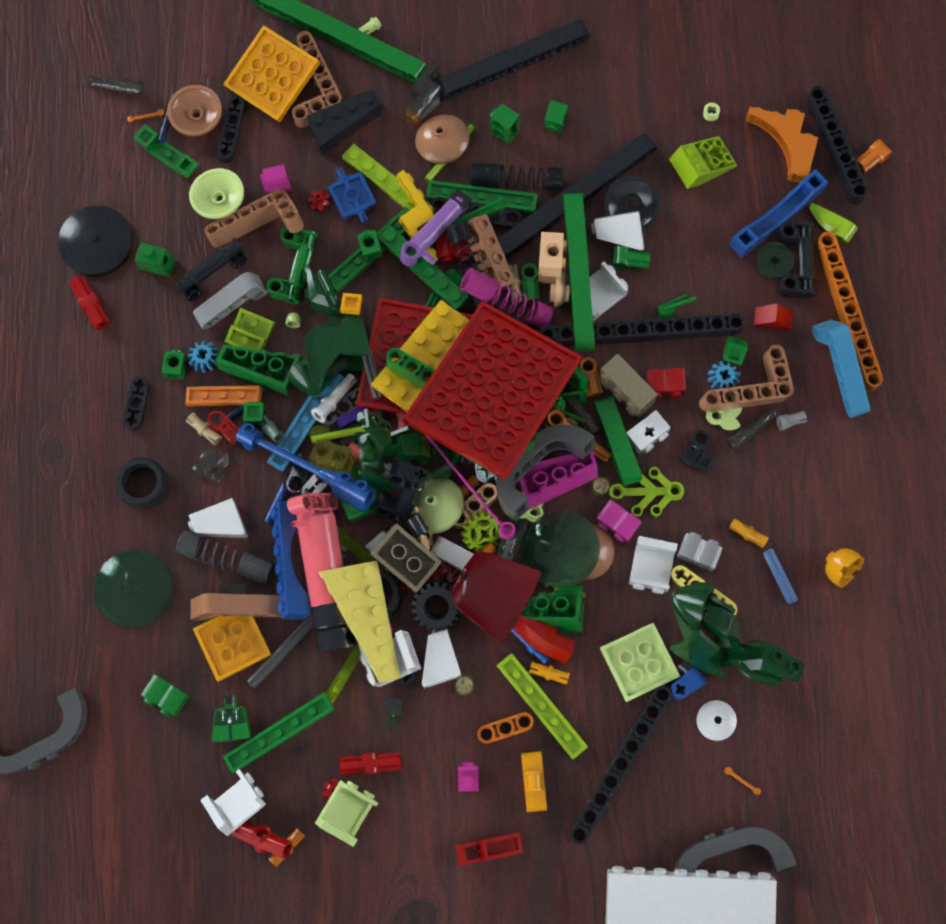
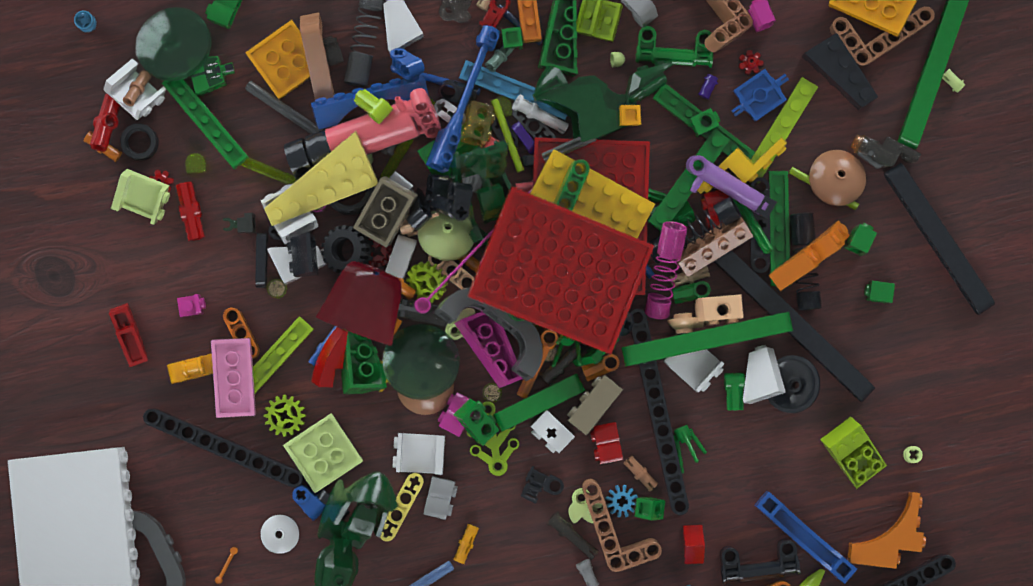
camera: 75 degrees right, 10 degrees up
(148, 847) = (81, 21): none -> dark azure wheel
(193, 754) = (173, 44): none -> clear green dish
(232, 799) = (136, 88): none -> nougat pin
(259, 518) = (405, 63): none -> blue piece
(274, 804) = (139, 156): none -> black tyre
(300, 547) = (376, 108): none -> lime piece
(322, 751) = (195, 163): none -> clear neon green tile
(334, 240) = (708, 86): none -> dark purple pin
(433, 696) = (261, 260): none -> black beam
(436, 646) = (303, 255): none -> black slope
(516, 166) = (810, 256): none -> orange arch
(549, 673) = (300, 367): light orange pin -> none
(550, 740) = (233, 377): none -> bright pink plate
(604, 700) = (279, 427): none -> lime gear
(629, 500) = (474, 424): none -> green brick
(698, 356) = (640, 473): none -> nougat pin
(782, 254) = (763, 546): clear green plate -> none

